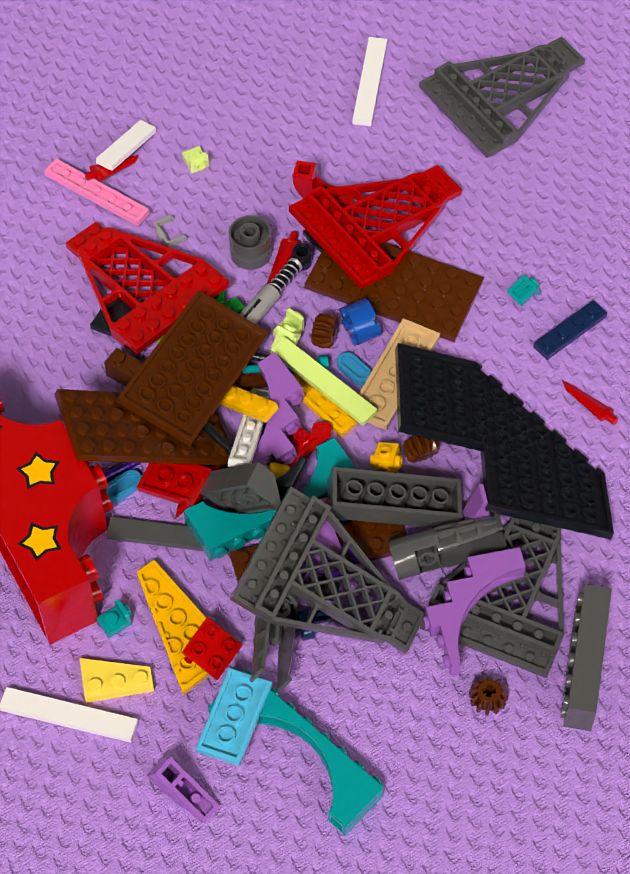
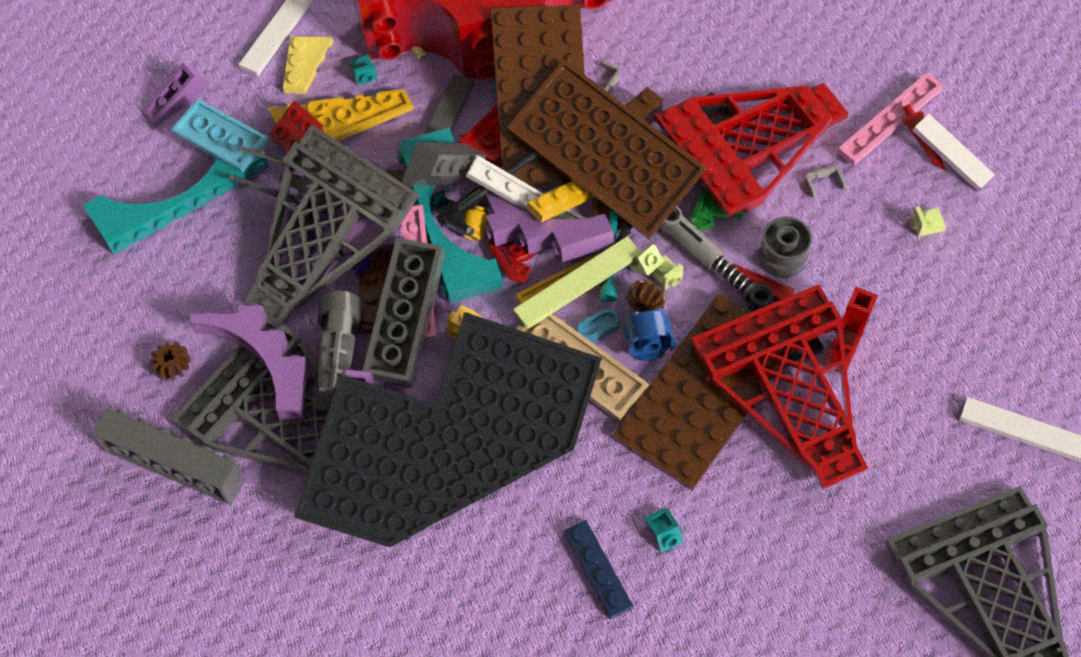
camera: 105 degrees right, 5 degrees up
(597, 408) = (482, 566): red bar -> none

